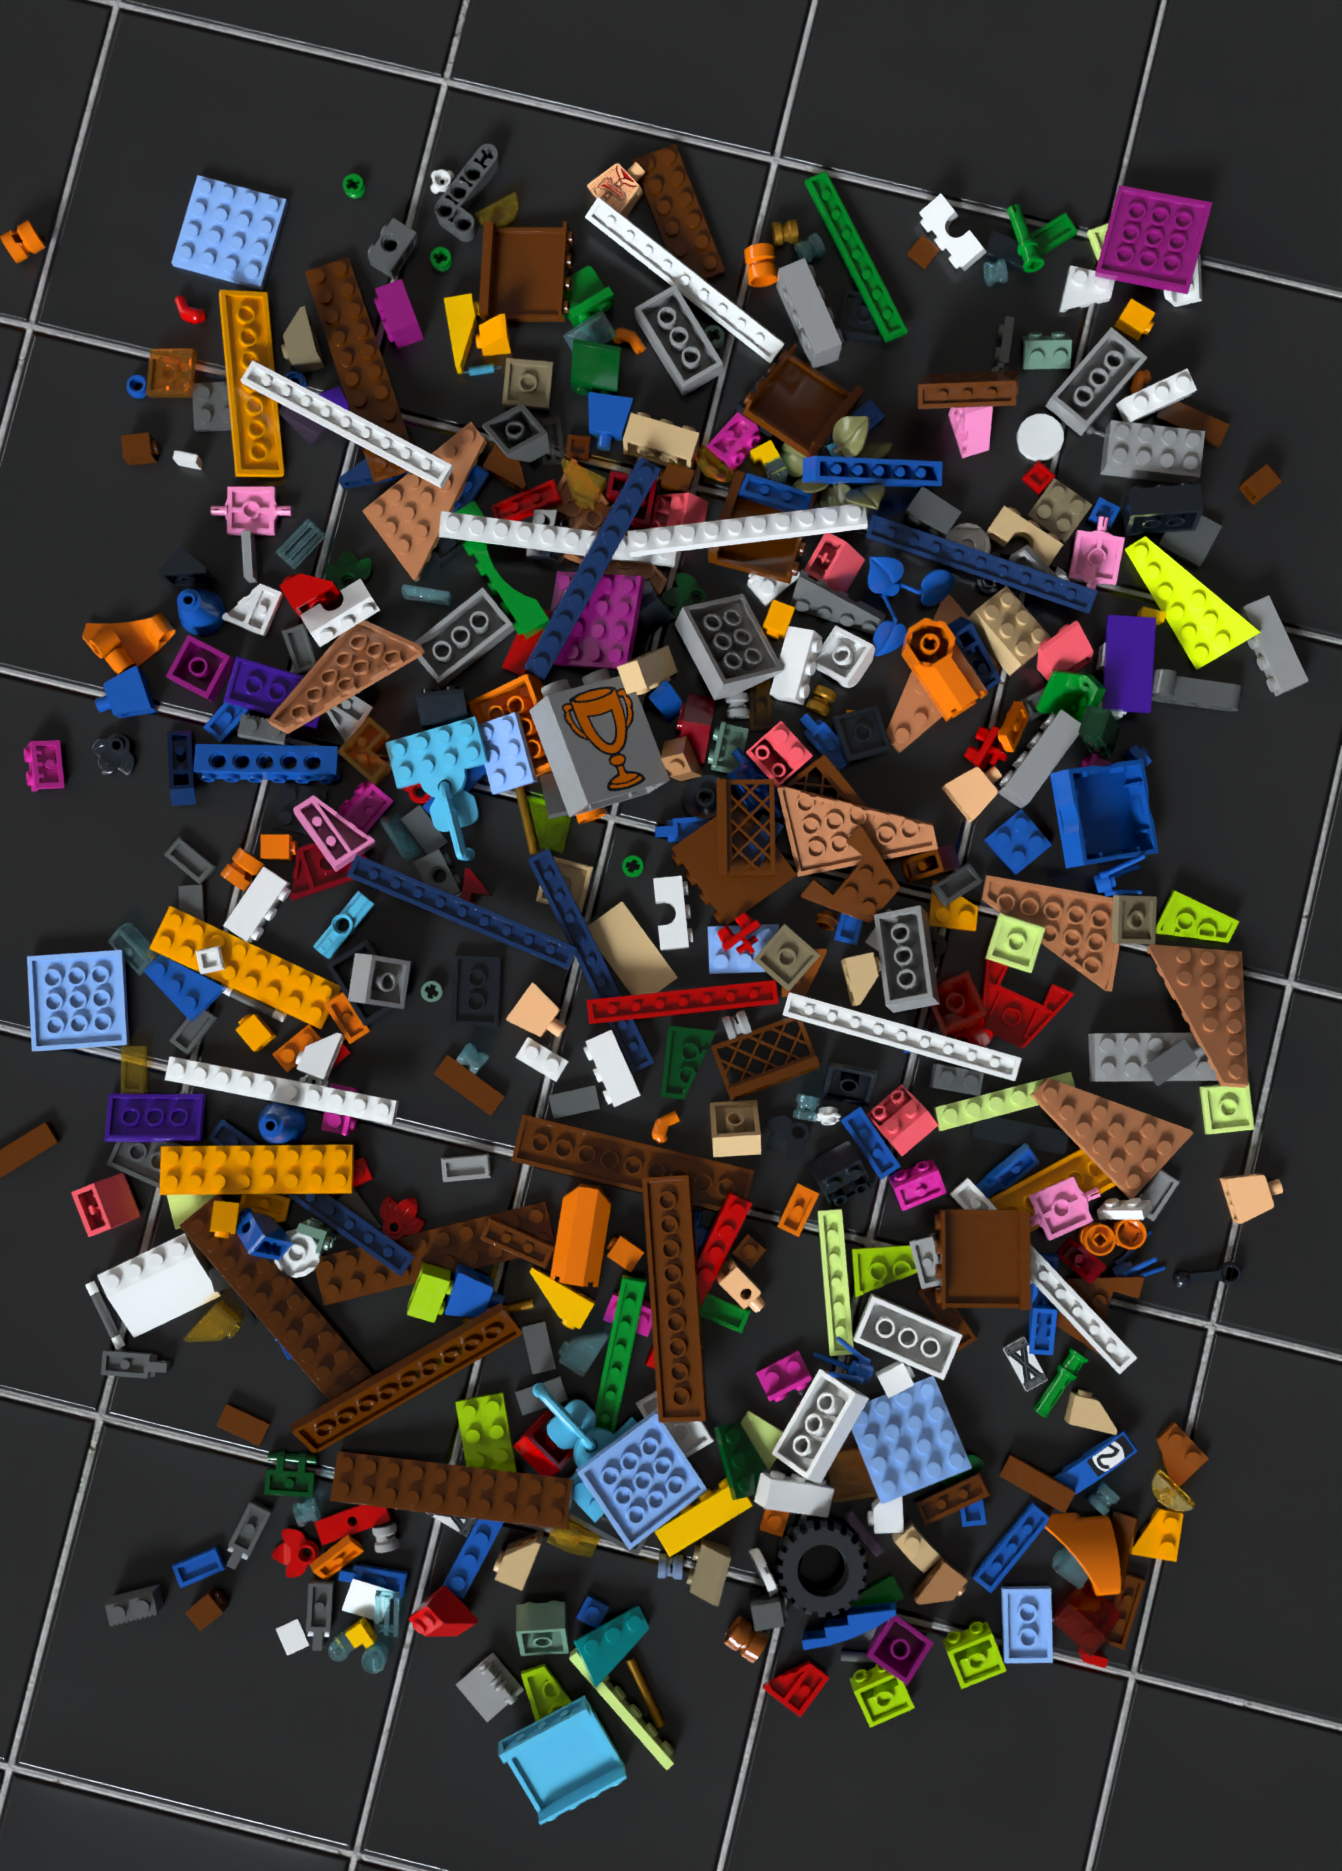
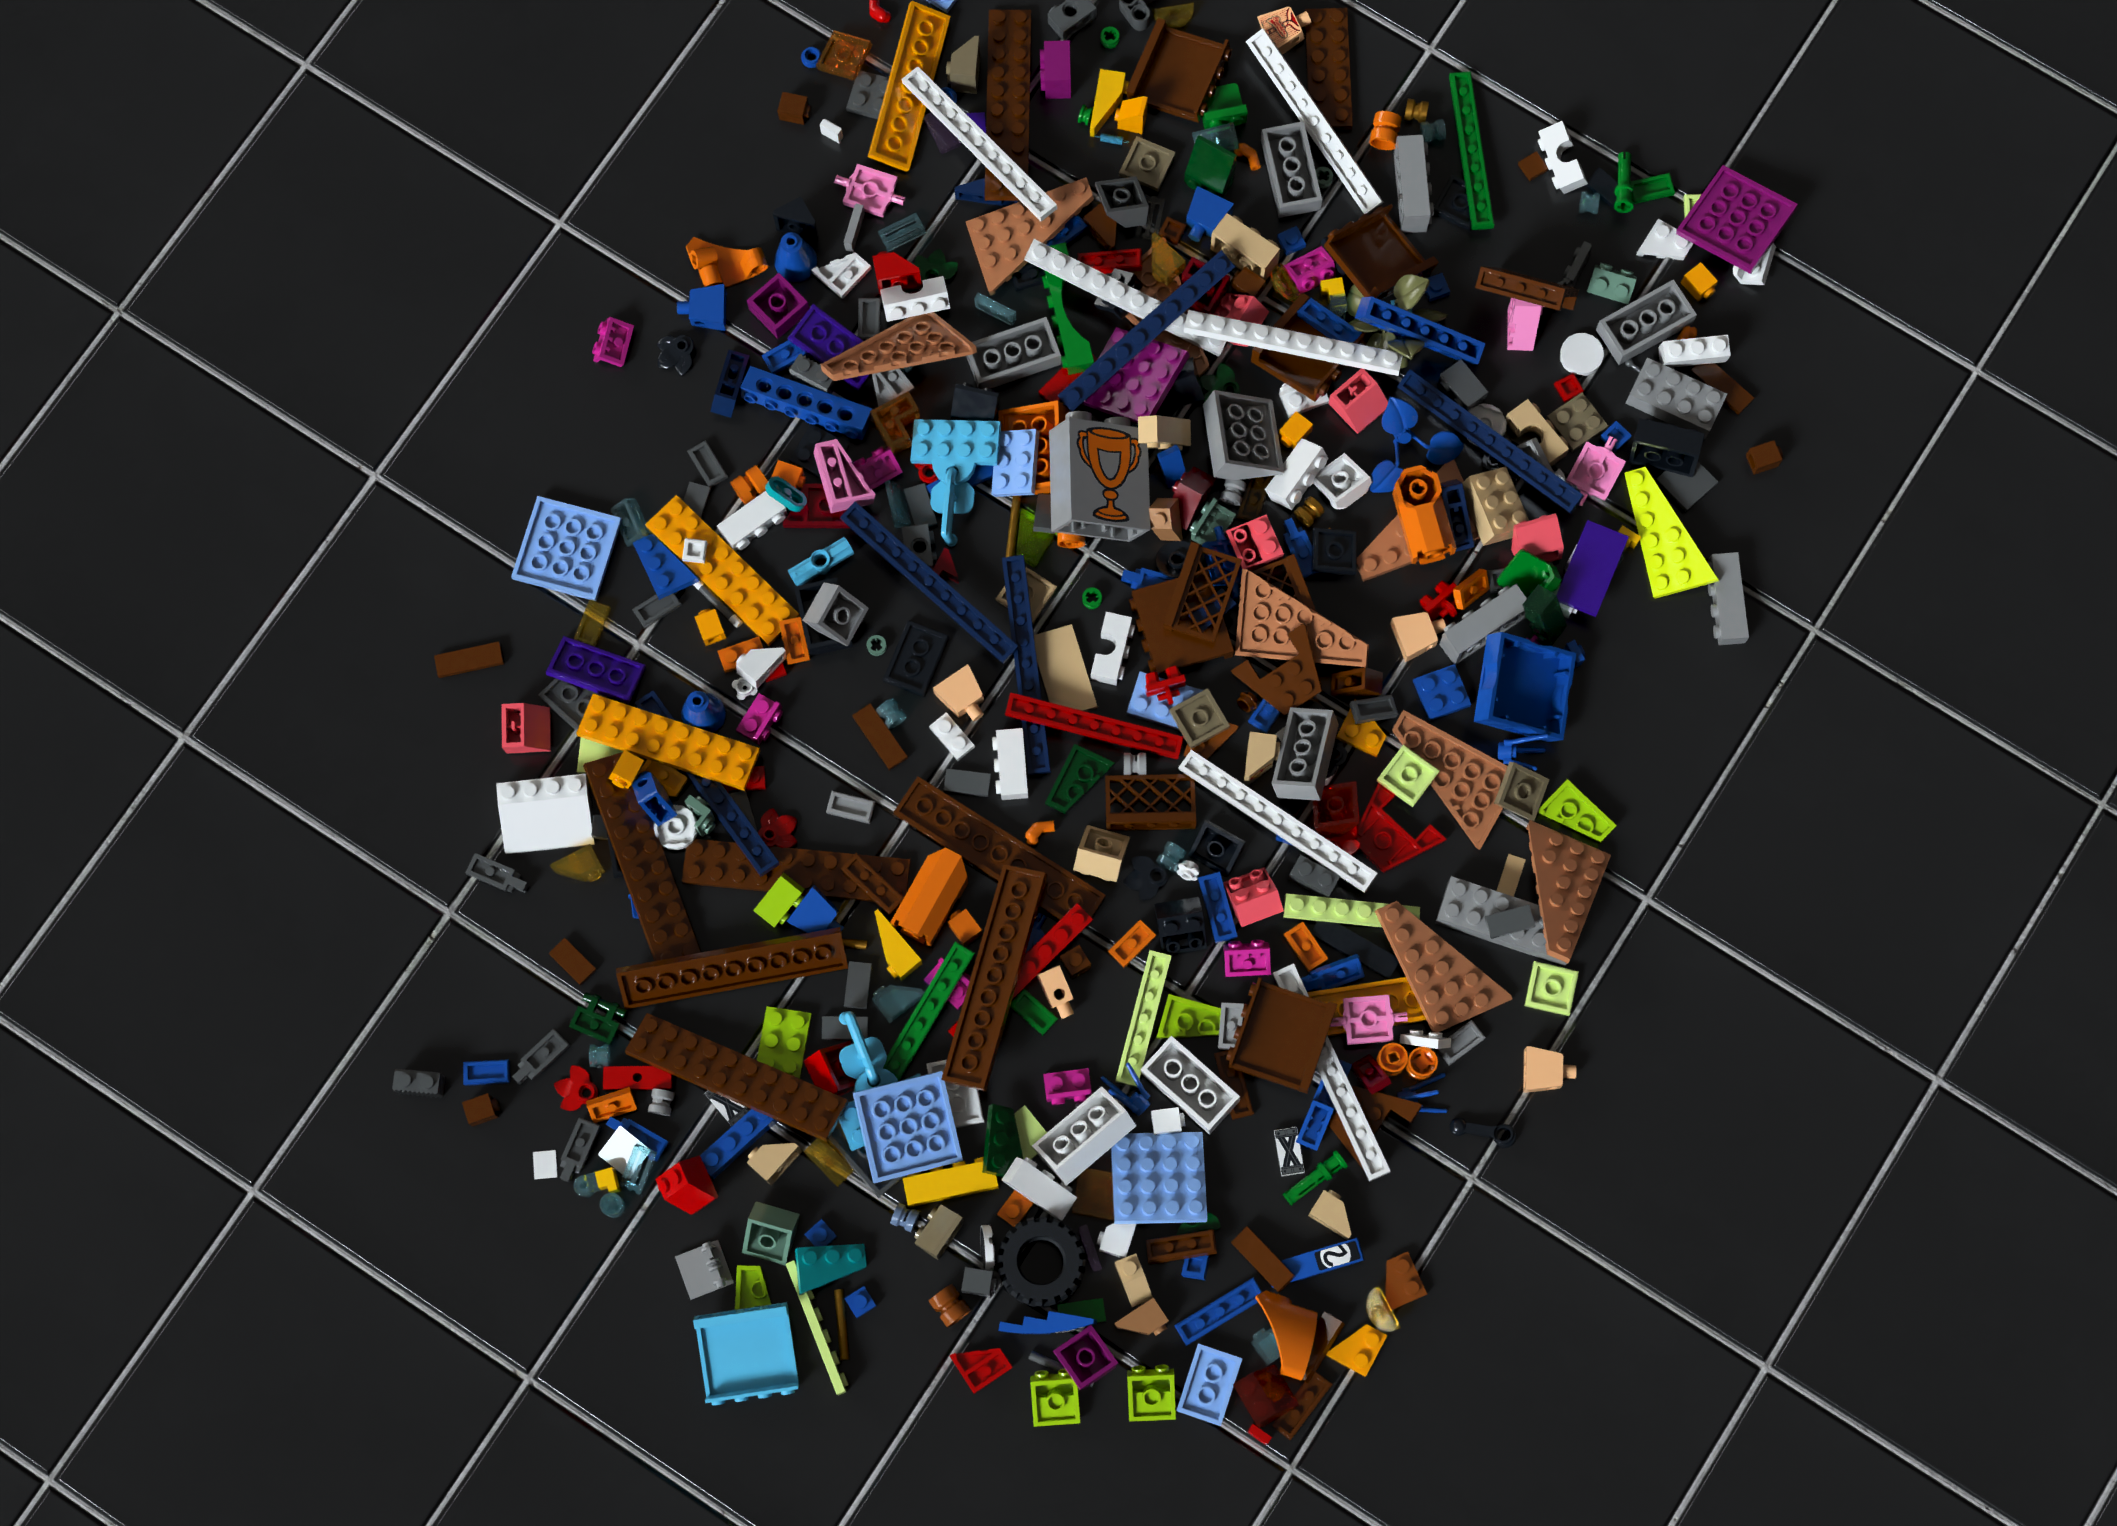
camera: 20 degrees right, 10 degrees down
(105, 1315) = (487, 825): dark grey bar -> none
(282, 869) = (786, 494): none -> teal plate
(282, 1090) = (715, 682): white plate -> none
(445, 353) = (1085, 115): none -> green bush
(655, 1663) = (860, 1302): none -> blue plate
(704, 416) = (1291, 240): none -> blue plate
(820, 601) = (1340, 429): dark grey wing -> none
(971, 1152) = (1305, 946): none -> orange plate
(1103, 1498) = (1318, 1295): clear light blue wheel -> none
(1148, 1008) = (1511, 875): none -> tan sticker
(1194, 692) = (1642, 613): dark grey beam -> none

